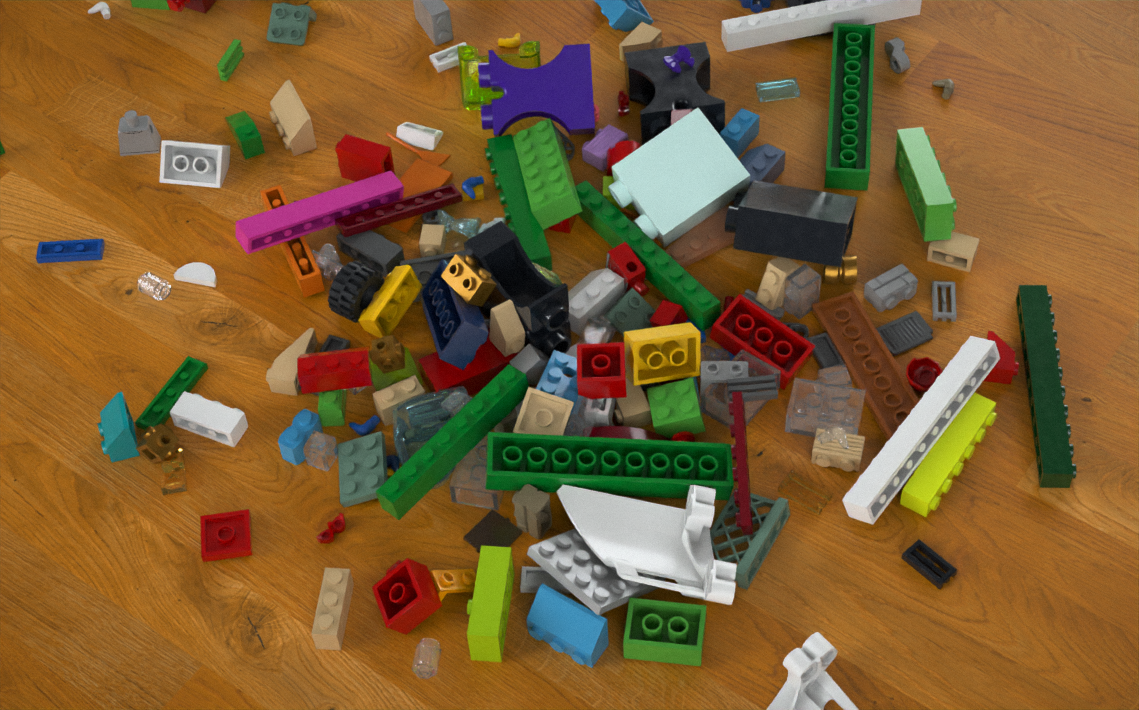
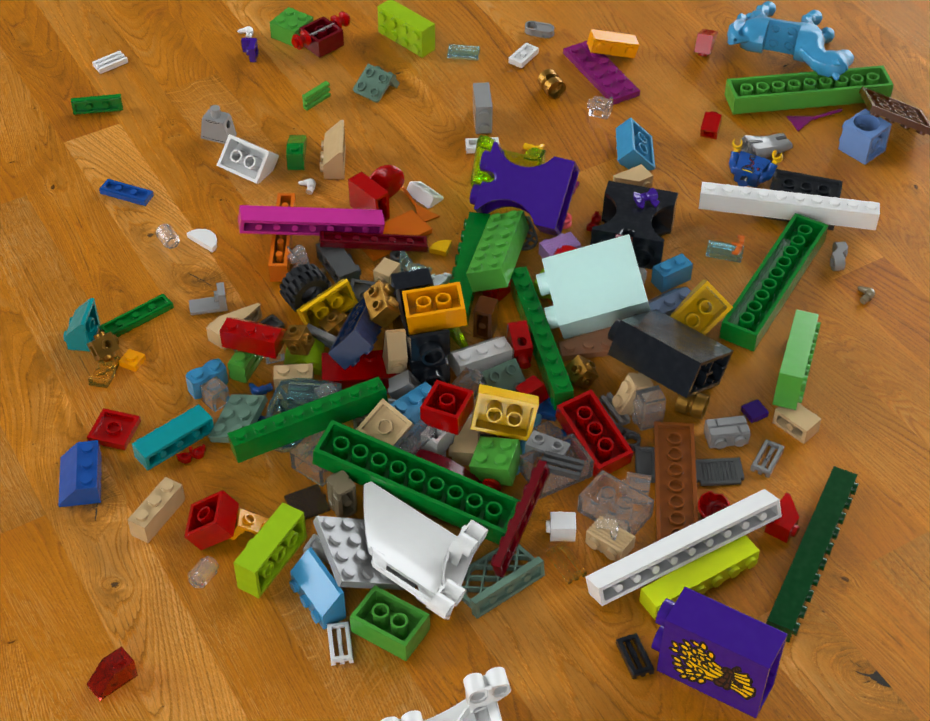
camera: 20 degrees right, 5 degrees down
(117, 25) = (250, 46): none -> dark purple bracket
(197, 447) = (132, 360): none -> light orange plate
(209, 418) = (151, 342): white brick -> none
(219, 603) = (80, 475): none -> blue slope
(252, 348) = (210, 304): none -> light grey bracket
(284, 167) = (310, 183): none -> white animal
(300, 518) = (173, 437): none -> teal brick
(376, 129) = (389, 177): none -> red piece
(411, 322) = (333, 322): none -> pearl gold brick
(411, 341) = (321, 335): none -> dark grey tile
(472, 182) = (440, 240): blue animal -> none
(535, 264) = (434, 308): none -> light orange brick
(573, 254) = (485, 317): none -> reddish brown brick
(630, 692) = (341, 658): none -> white tile
(710, 276) = (581, 371): none -> pearl gold brick
(781, 455) = (562, 526): none -> white brick
(791, 76) = (739, 246): none -> orange piece
(797, 160) = (702, 308): none -> yellow slope
(904, 254) = (754, 411): none -> dark purple tile
(1023, 525) = (718, 650): none -> dark purple brick

